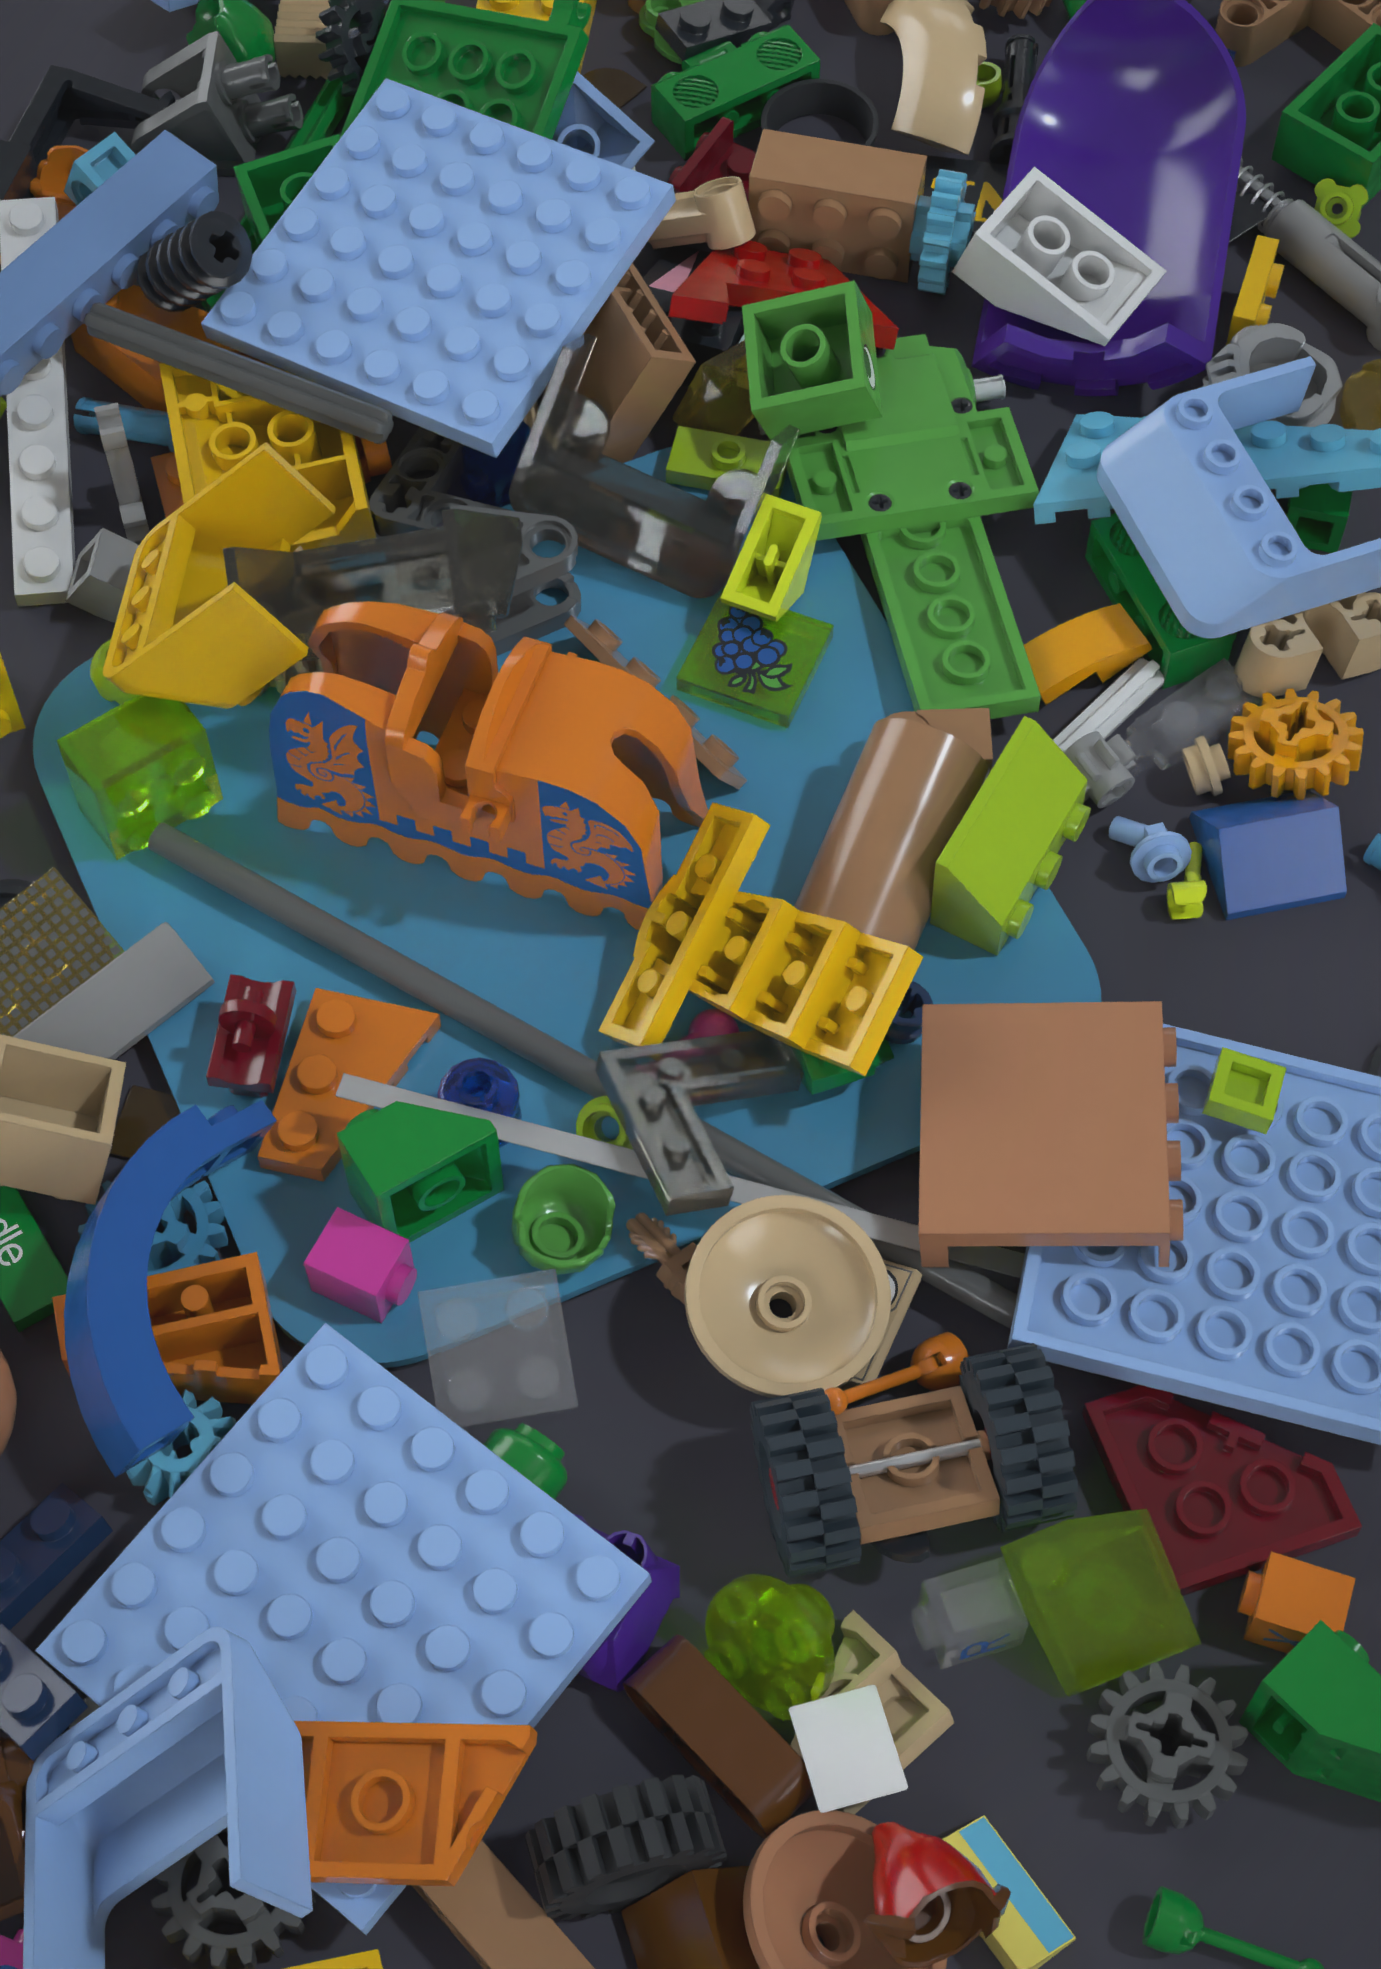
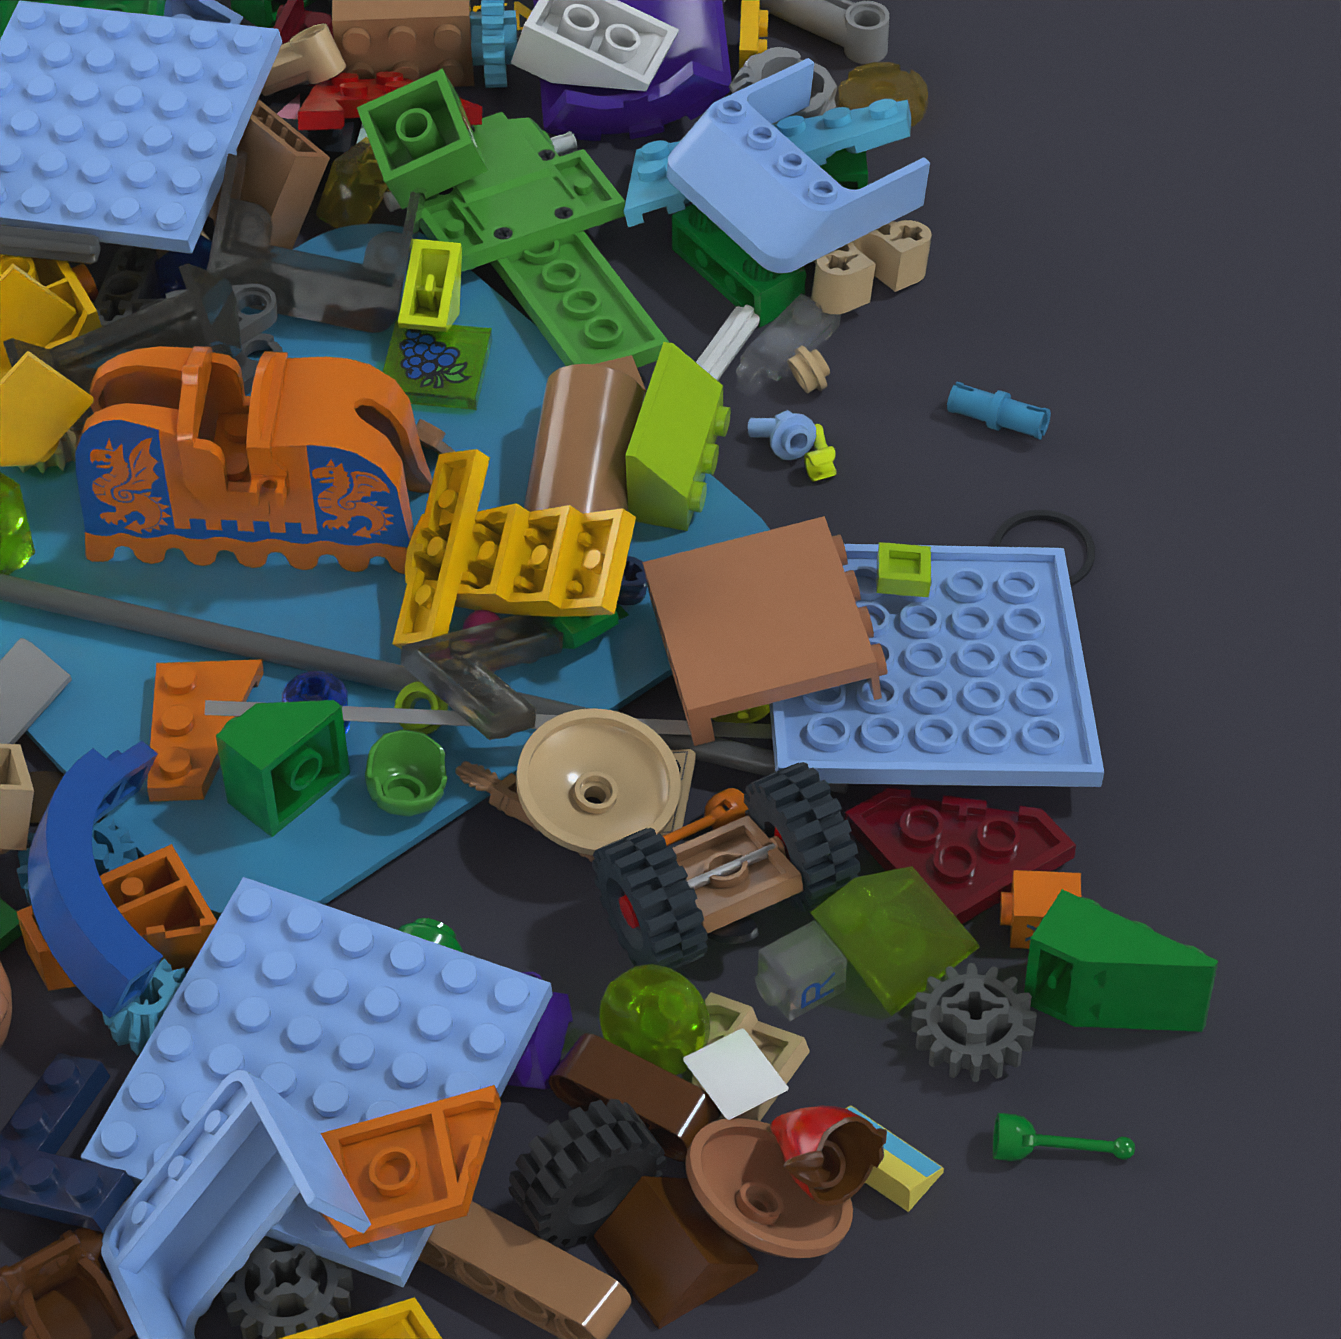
camera: 15 degrees left, 10 degrees down
(251, 1036) = (116, 704): dark red hips -> none
(361, 1265) = (255, 842): dark pink brick -> none
(498, 1349) = (384, 867): clear piece -> none
(704, 455) = (349, 234): lime plate -> none
(1088, 644) = (695, 303): light orange slope -> none
(1104, 766) = (737, 382): light grey gear -> none
(1272, 853) = (878, 419): blue slope -> none
(1295, 744) = (872, 338): light orange gear -> none

